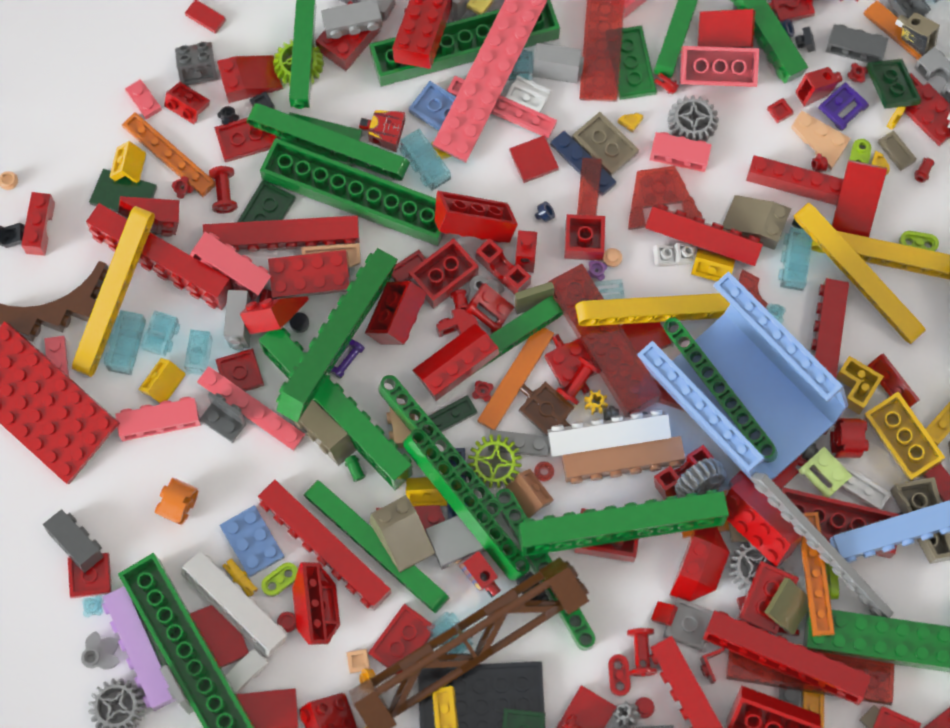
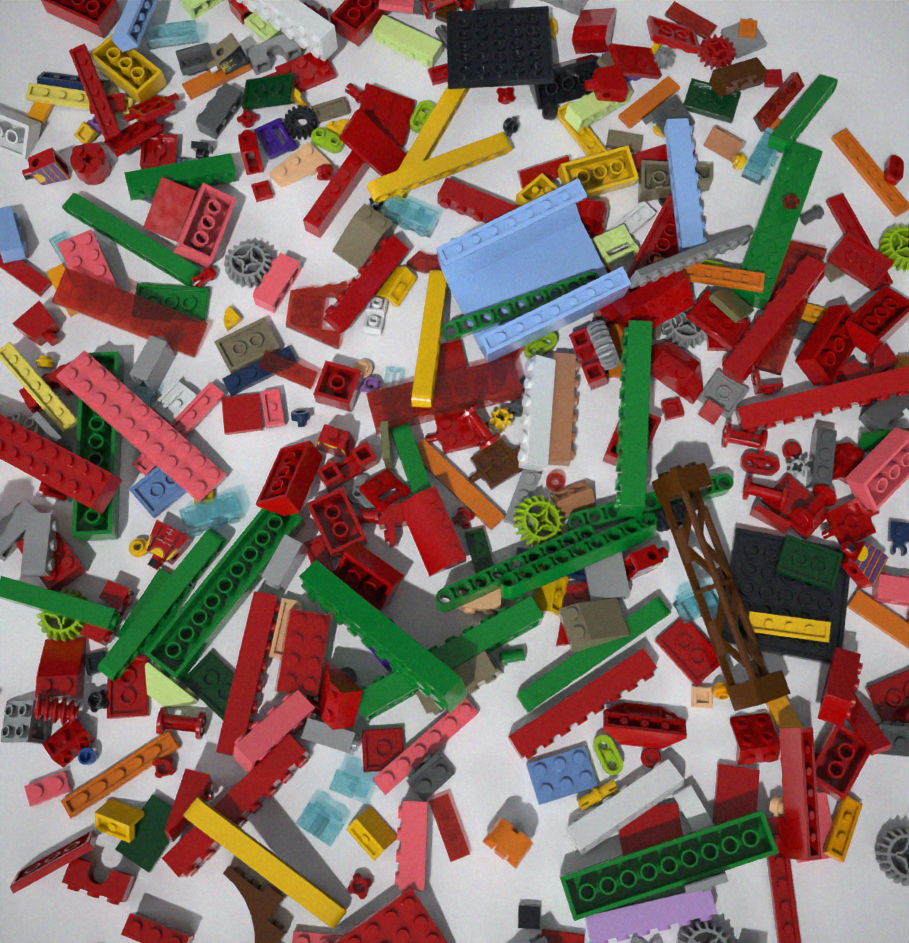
camera: 75 degrees left, 0 degrees up
(74, 147) = (81, 876): none -> red arch
(81, 121) = (54, 861): none -> red tile
(110, 377) = (361, 892): none -> red plate
(116, 538) = (528, 917): none -> black tile
(125, 342) = (320, 864): clear light blue brick -> none
(177, 121) = (84, 756): none -> blue hinge
(181, 449) = (449, 827): none -> clear red tile
(208, 81) = (56, 710): none -> red piece
(248, 168) = (166, 689): none -> yellowish green slope
(322, 103) = (117, 598): none -> red arch
(374, 101) = (138, 553): none -> yellow plate
(391, 235) = (284, 563): none -> light grey brick
(546, 184) = (272, 408): none -> coral plate
(561, 696) = (770, 518): none -> red tile
(586, 687) = (766, 492): none -> red hose
(657, 573) = (672, 409): none -> red tile
(687, 425) = (540, 346): none -> lime plate
(874, 115) = (300, 113): none -> black tyre
(906, 204) = (388, 111): none -> red plate
(931, 647) = (791, 201): none -> clear red plate
(934, 683) = (816, 213): none -> dark grey pin
(938, 335) = (510, 125): none -> black plate

